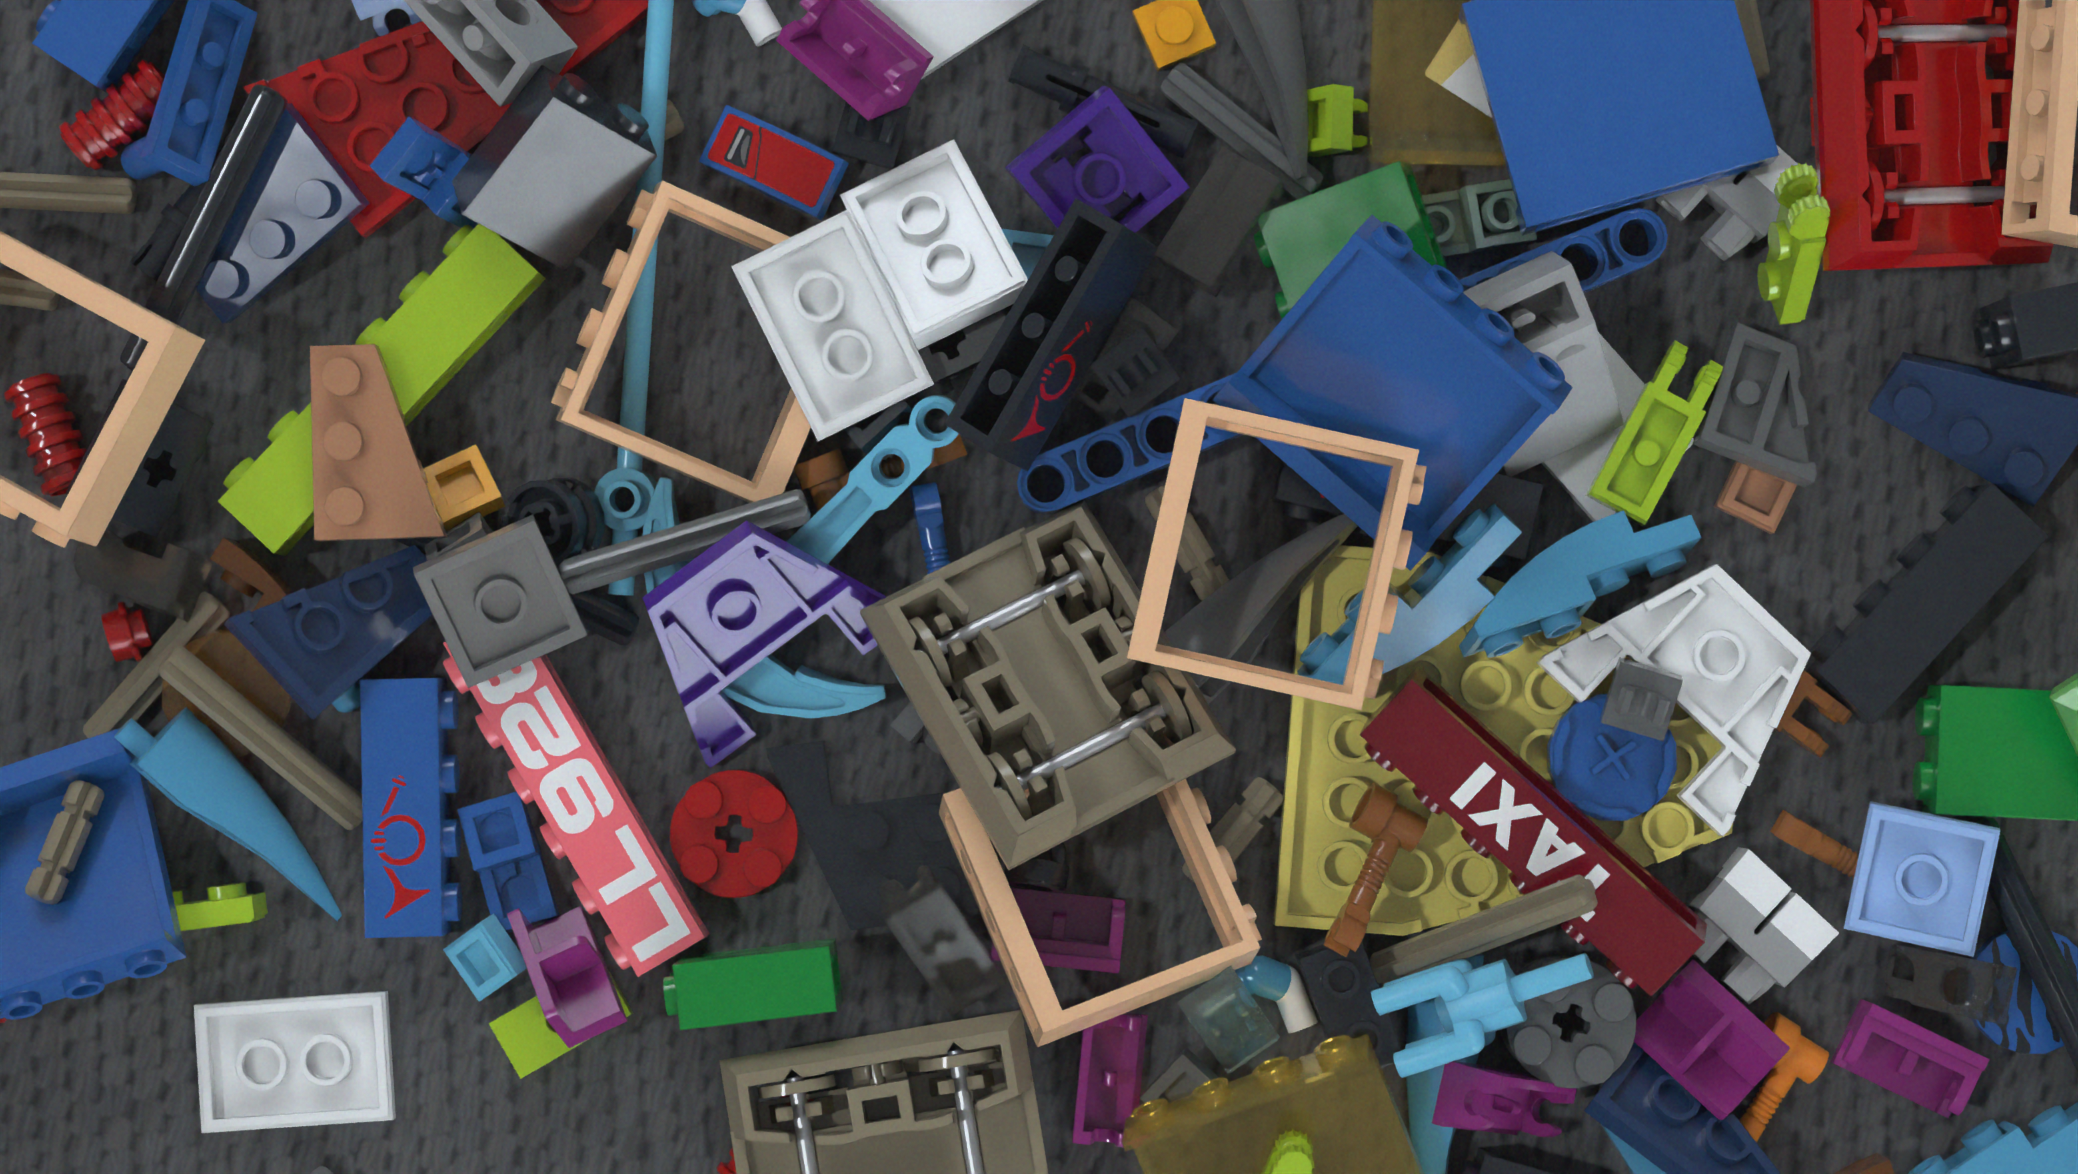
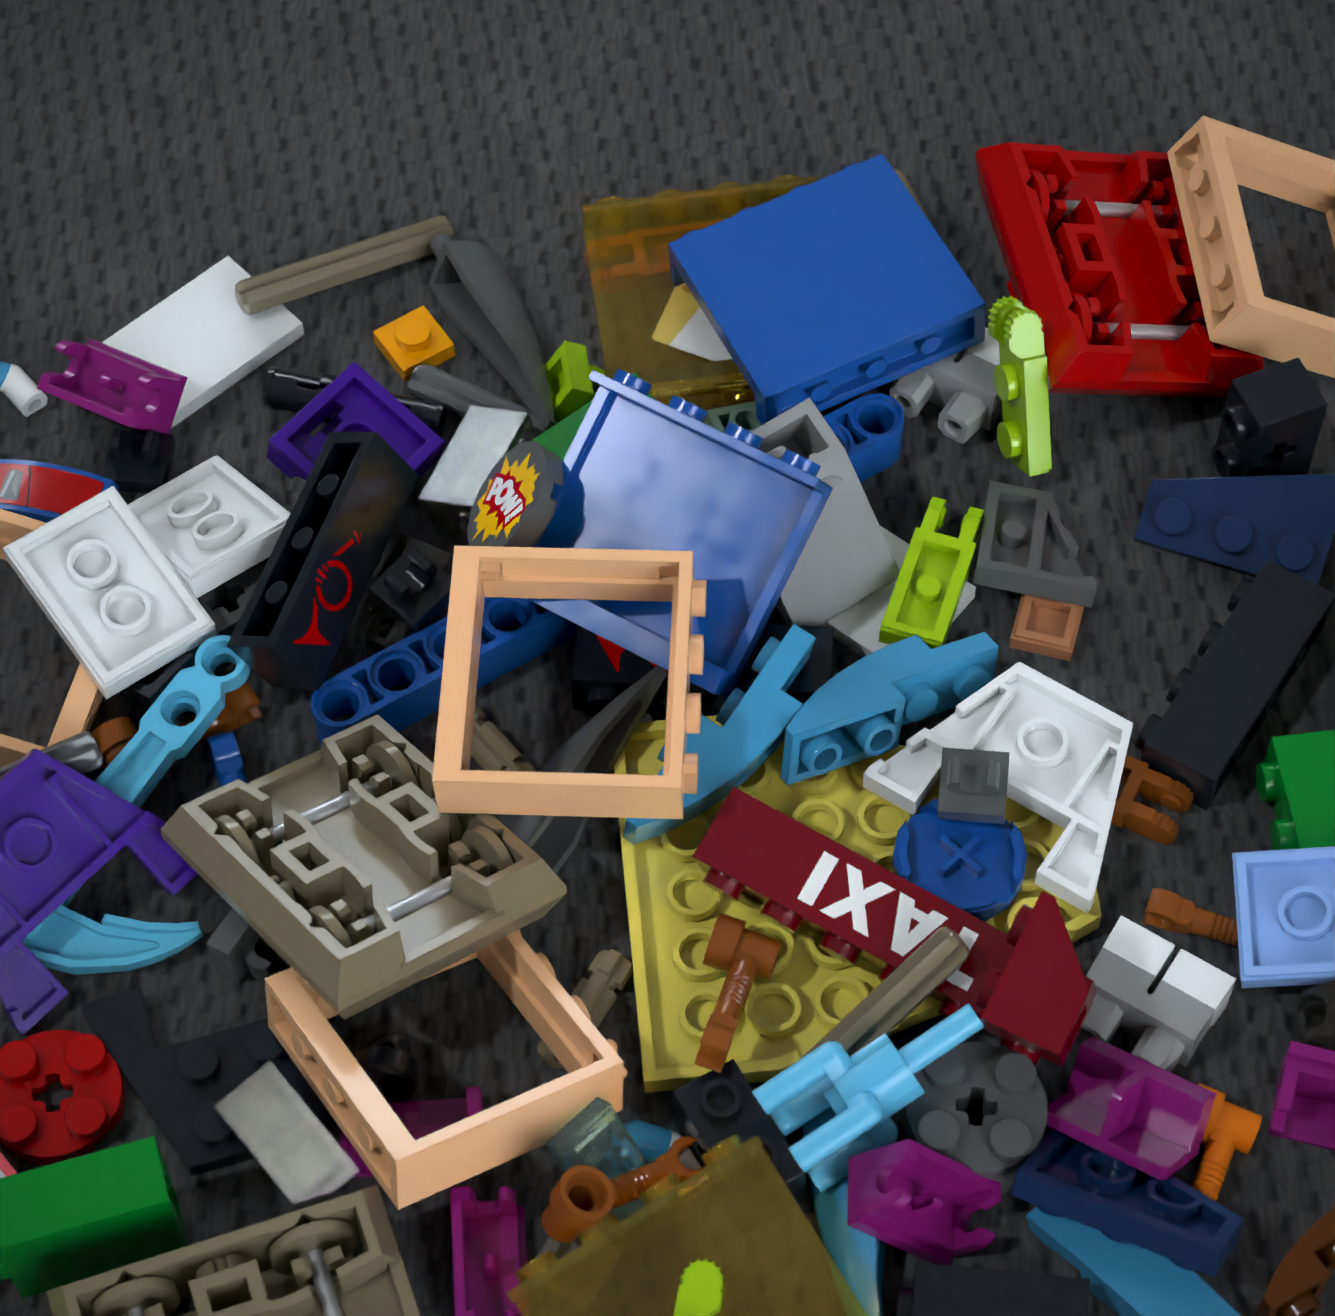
camera: 10 degrees left, 30 degrees down
(1213, 1062) = (587, 1194): none -> dark orange brick
(1251, 313) = (515, 498): none -> tile
(1655, 954) = (1042, 990): none -> dark red slope

